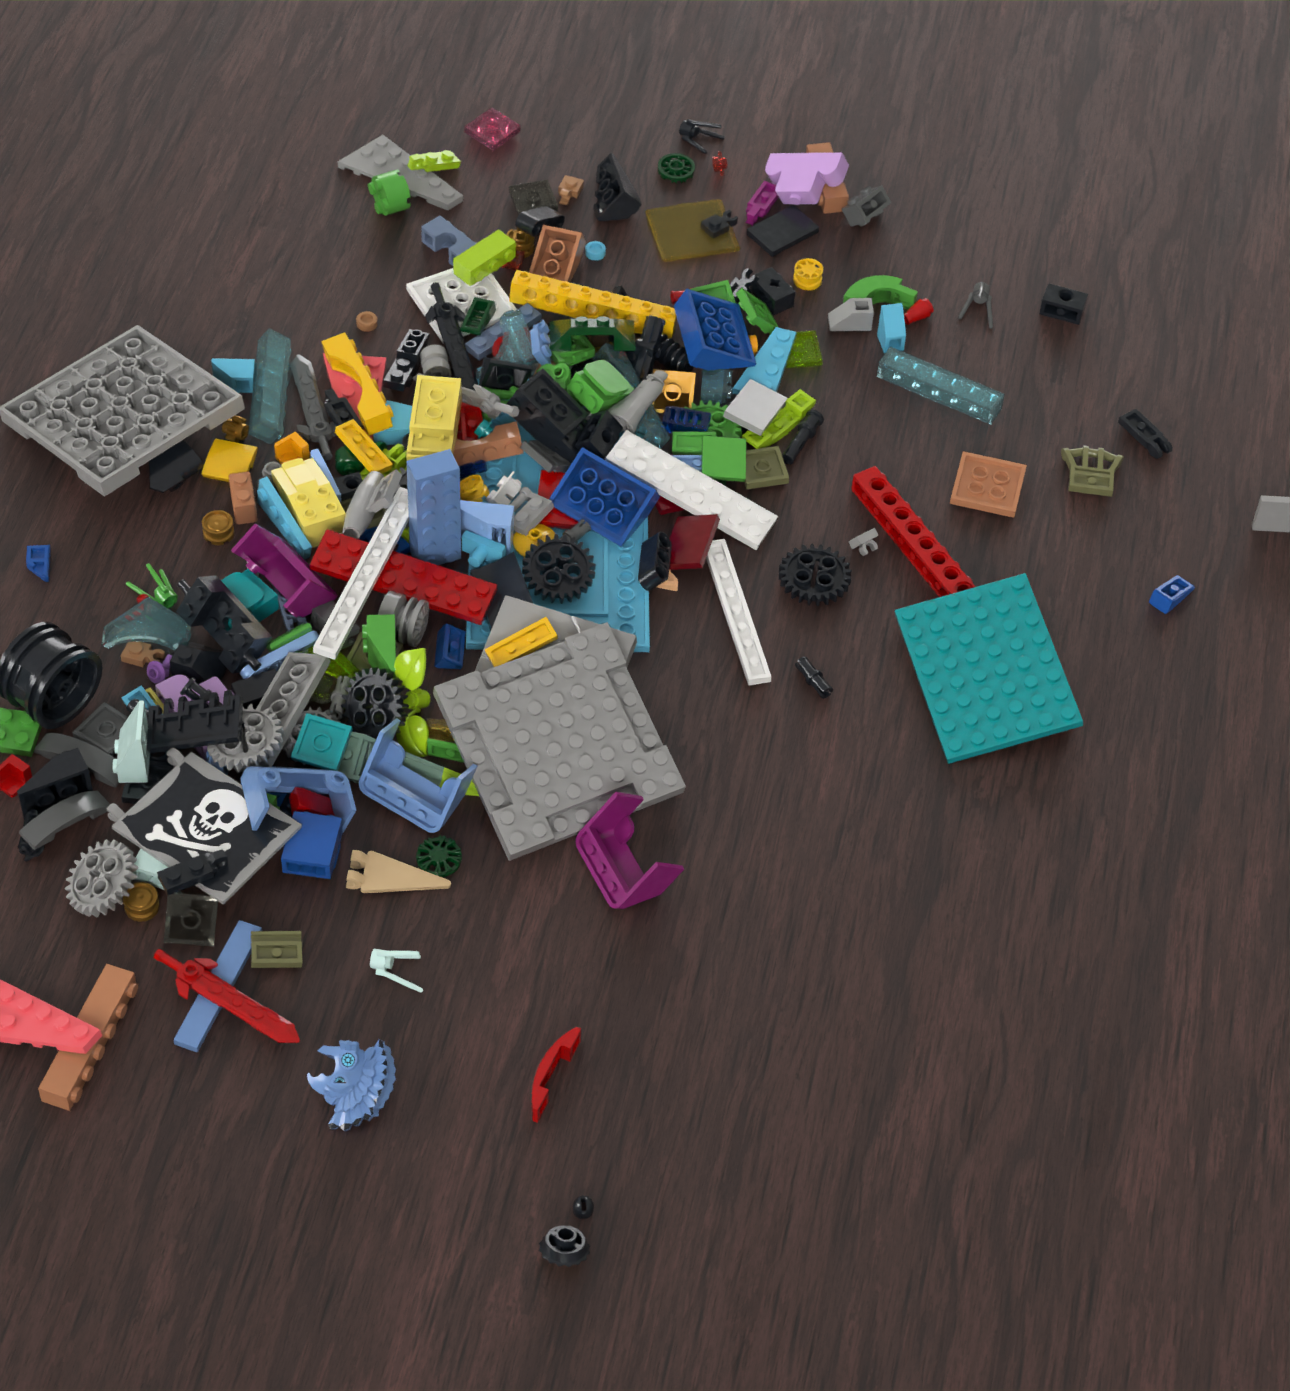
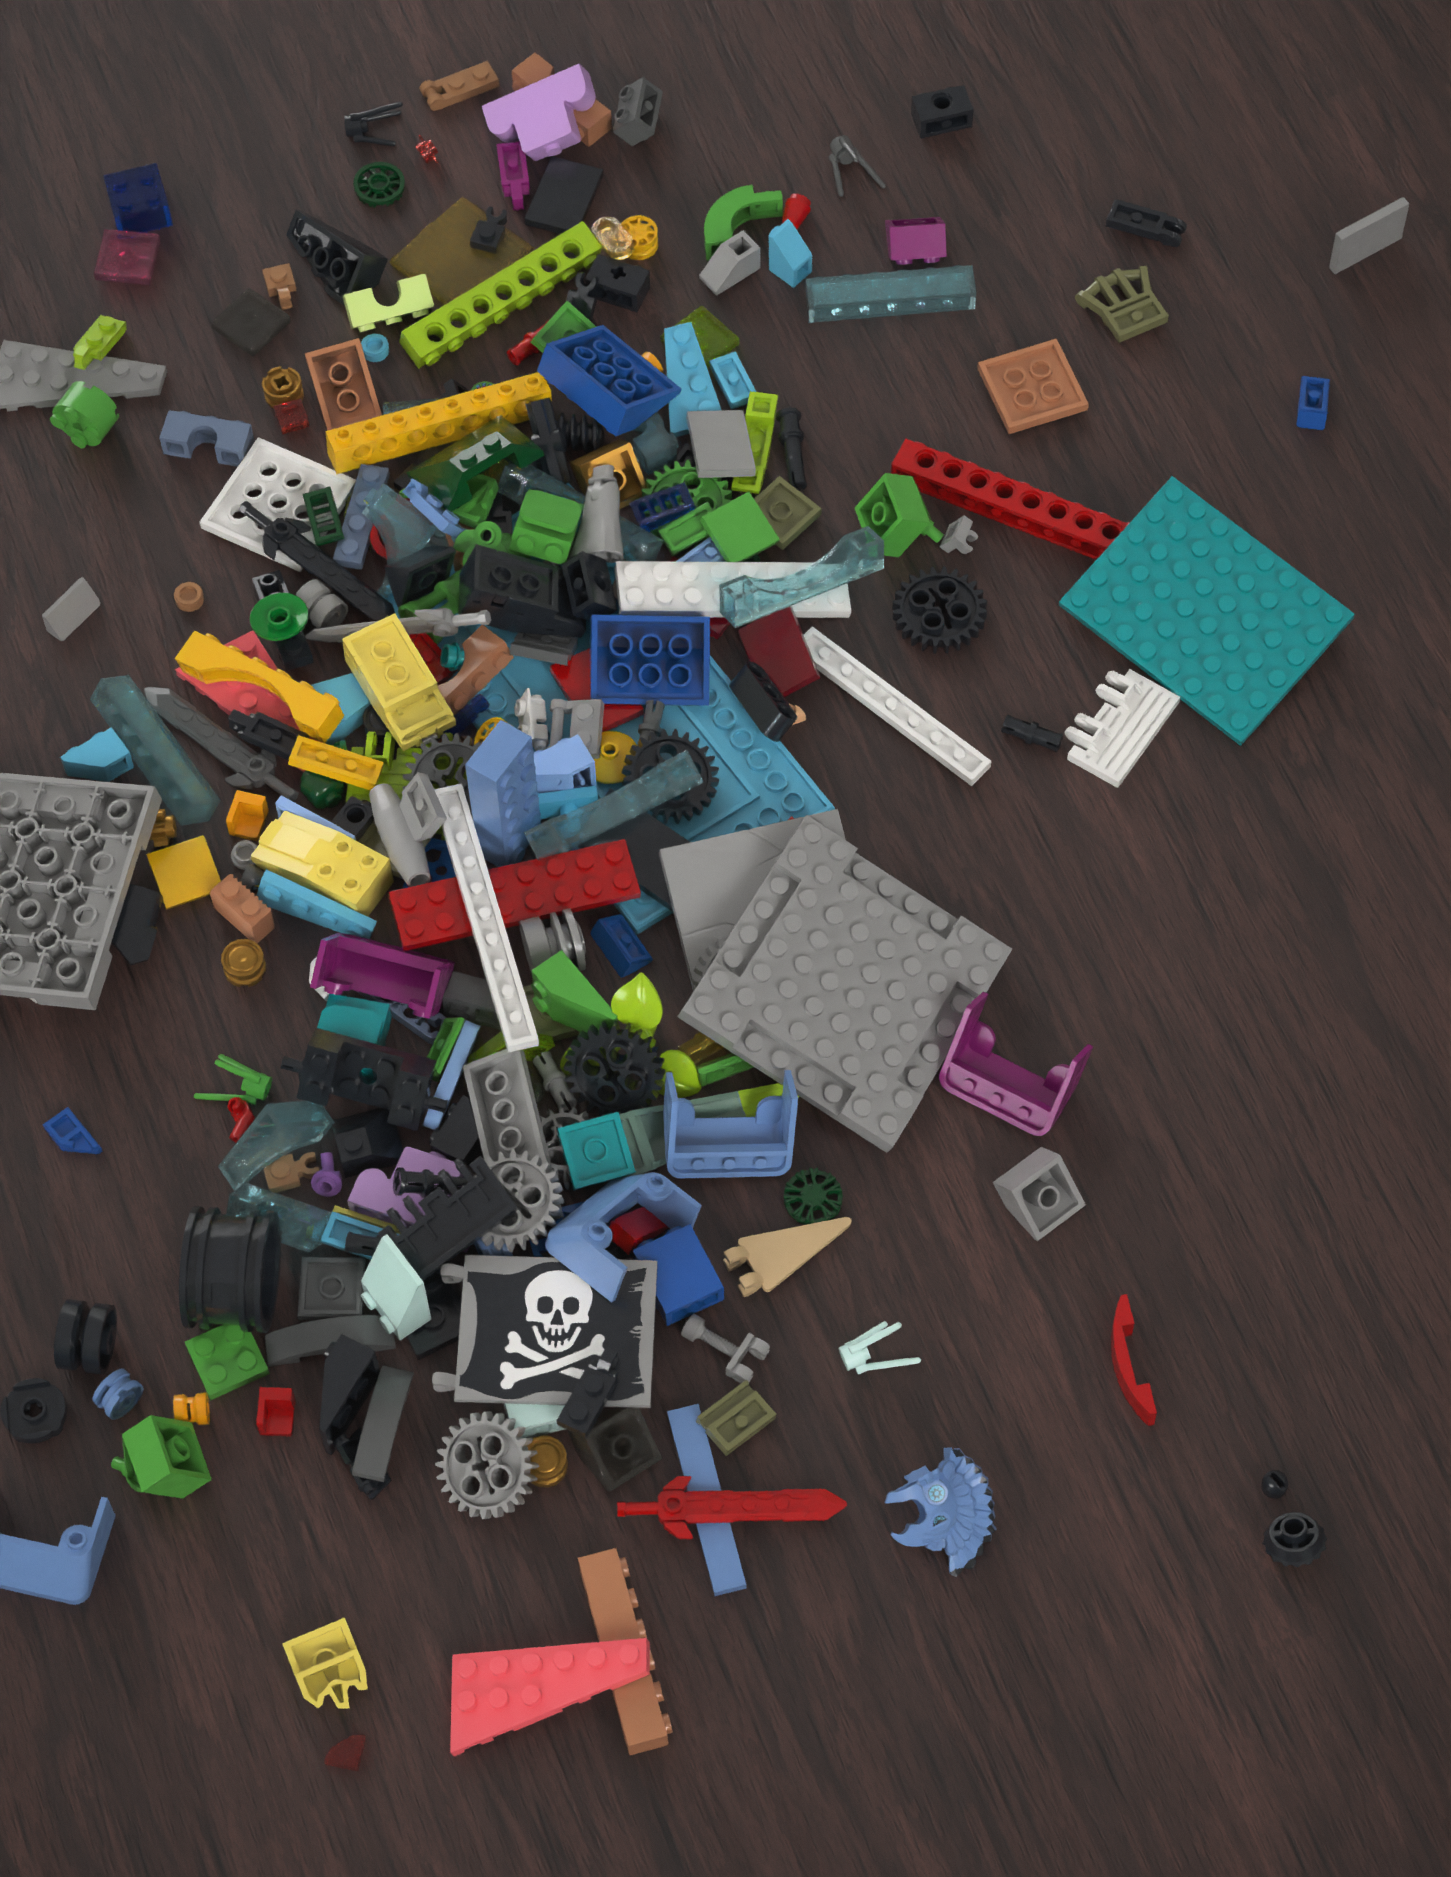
camera: 30 degrees left, 10 degrees up
(116, 677) = (299, 1222): none -> clear light blue arch
(292, 290) = (70, 610): none -> light grey slope
(297, 884) = (757, 1347): none -> light grey bar
(400, 352) = (279, 616): none -> green dish
(484, 257) = (269, 435): lime brick -> none
(522, 643) = (722, 896): yellow plate -> none
(525, 102) = (138, 199): none -> clear blue brick
(533, 220) = (289, 349): black beam -> none
(538, 561) = (633, 799): none -> clear light blue arch
(581, 940) = (1039, 1192): none -> light grey slope
(638, 234) = (365, 310): none -> yellowish green arch
(684, 253) = (576, 240): none -> lime brick
(756, 311) = (630, 322): bright green plate -> none
(771, 141) = (459, 86): none -> medium nougat plate
(778, 510) = (850, 559): none -> clear light blue arch
(788, 263) = (613, 238): none -> clear yellow plate
(797, 378) = (732, 379): none -> medium azure plate
(831, 505) = (896, 513): none -> bright green piece
(872, 711) = (1123, 731): none -> white hinge
(983, 364) = (916, 239): none -> magenta slope

